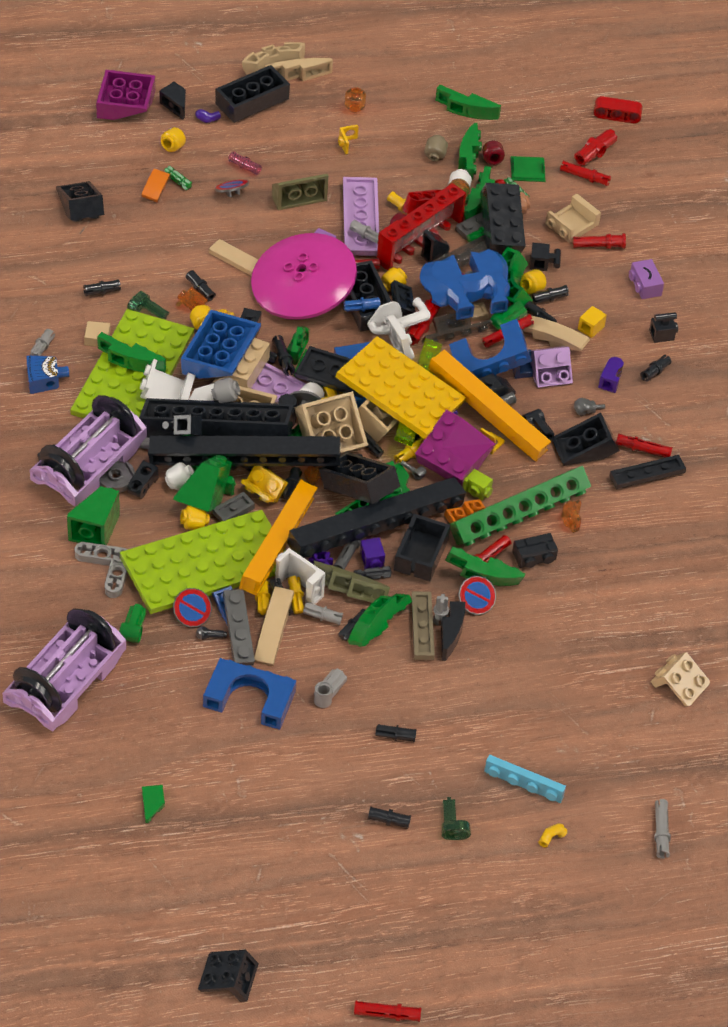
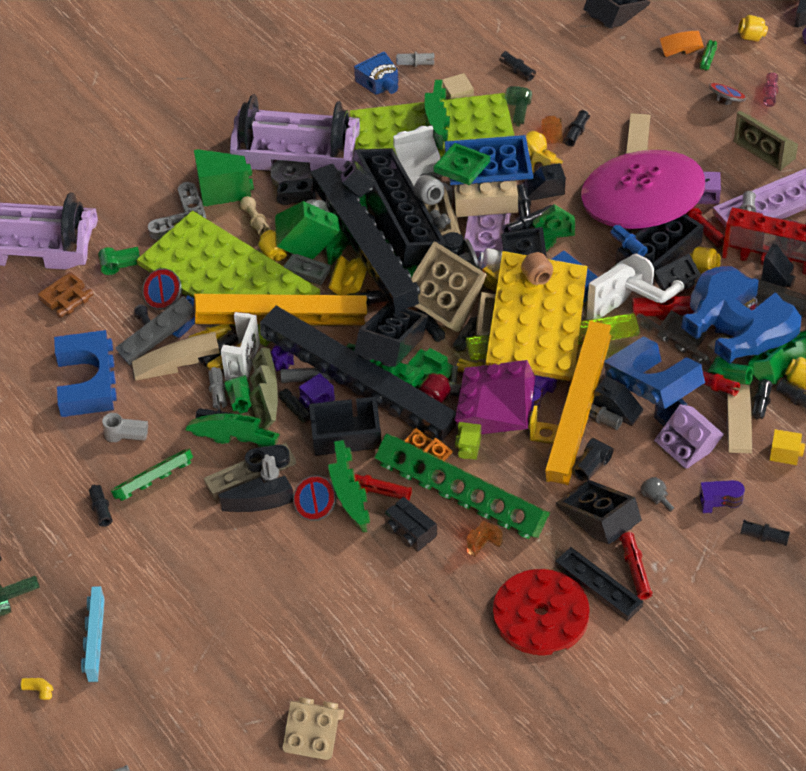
camera: 70 degrees right, 0 degrees up
(128, 518) = (257, 220): none -> tan pin
(142, 678) = (61, 291): none -> dark orange plate
(222, 356) = (461, 164): none -> green plate
(267, 398) = (440, 220): none -> dark grey arm
(338, 599) = (238, 393): none -> green piece
(373, 358) = (537, 268): none -> nougat head
(387, 687) = (160, 470): none -> plate
(416, 479) = (436, 387): none -> dark red head
(425, 602) = (280, 453): none -> black piece
(634, 523) = (545, 633): none -> red plate

